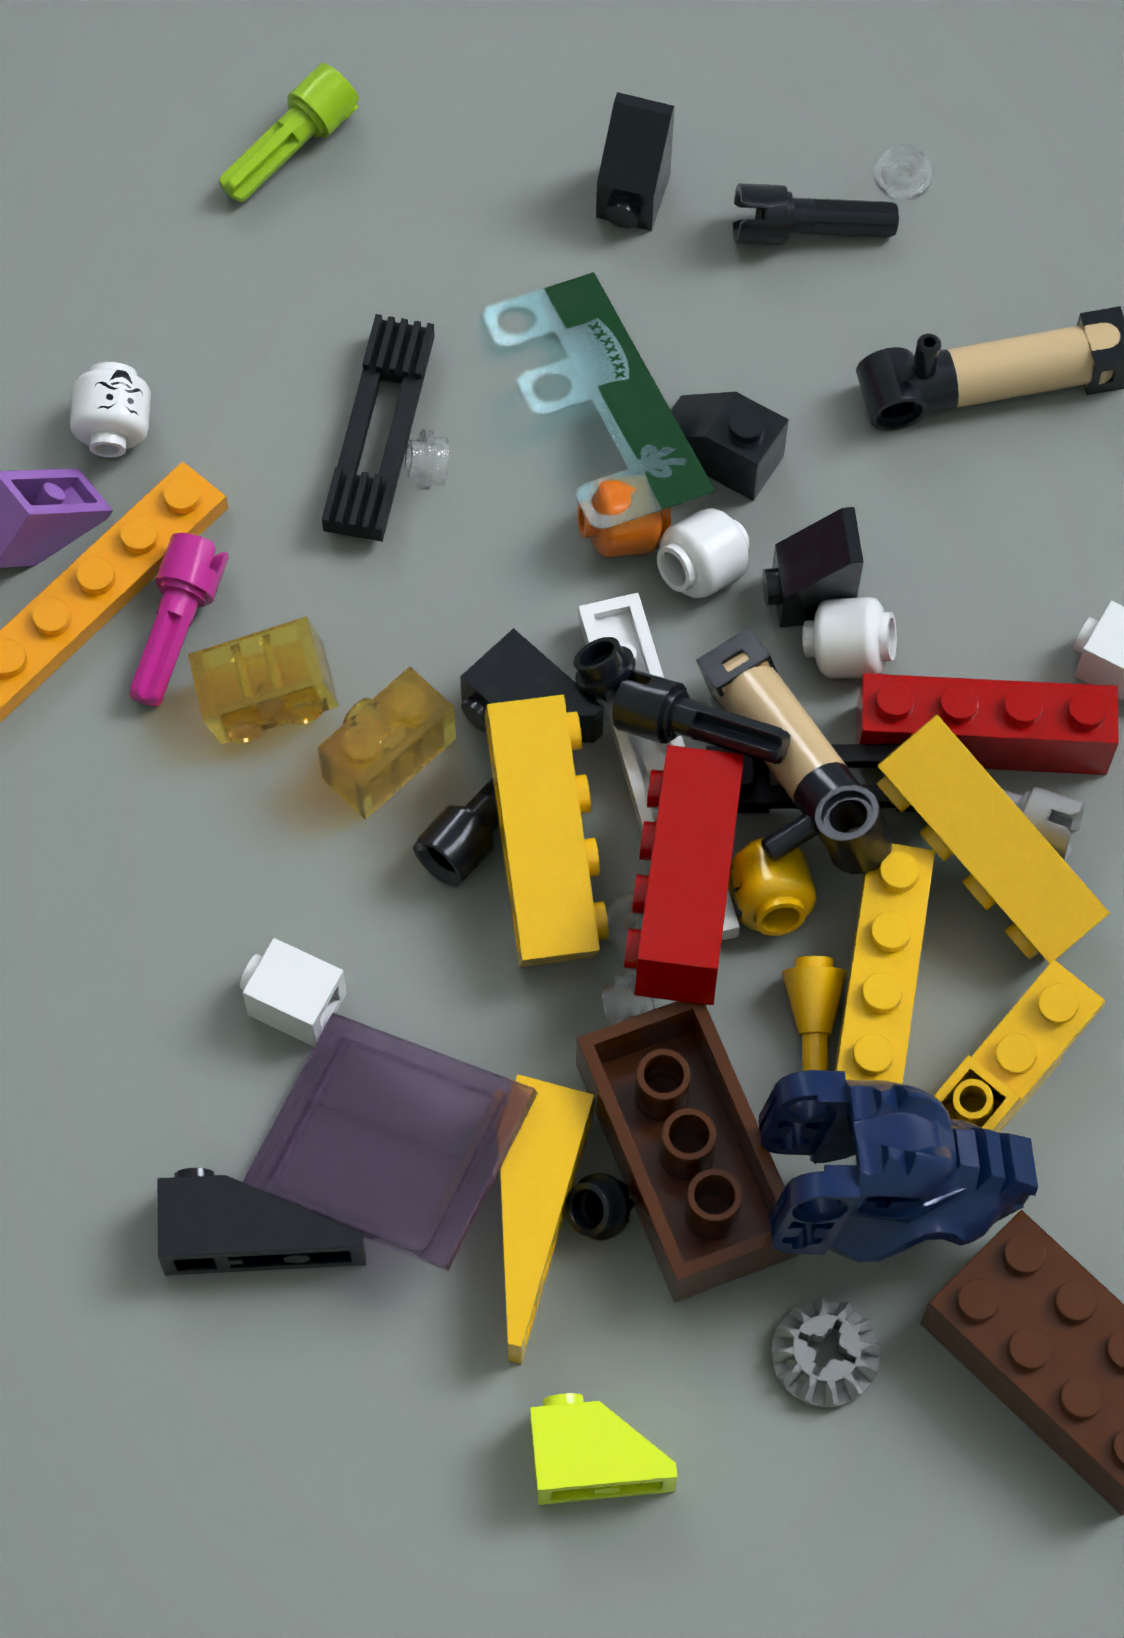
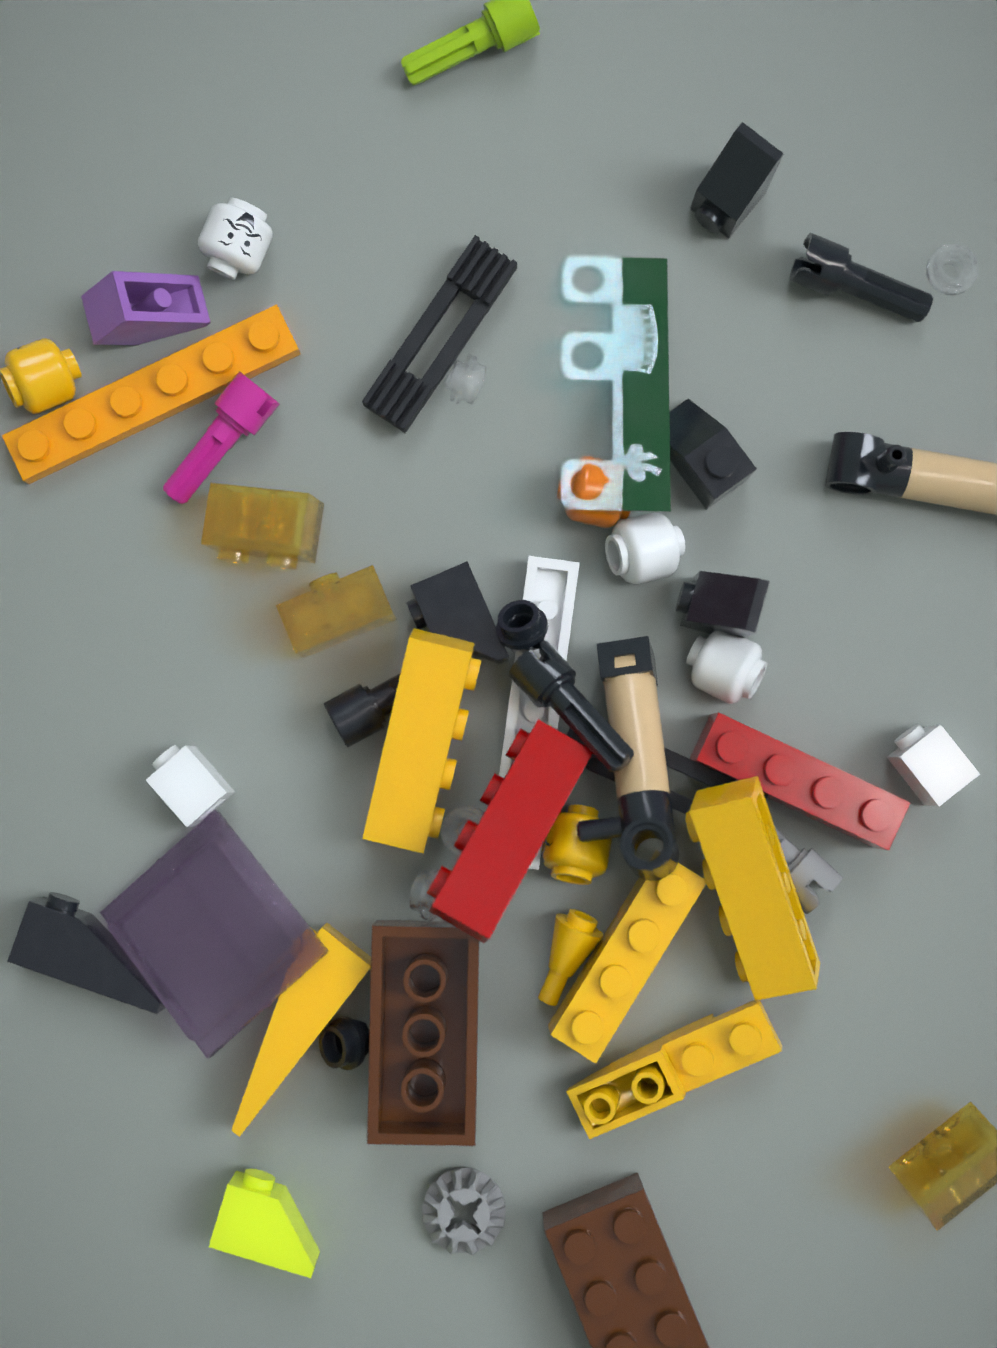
camera: 20 degrees right, 20 degrees up
(913, 1171) = (575, 1144): dark blue animal -> none

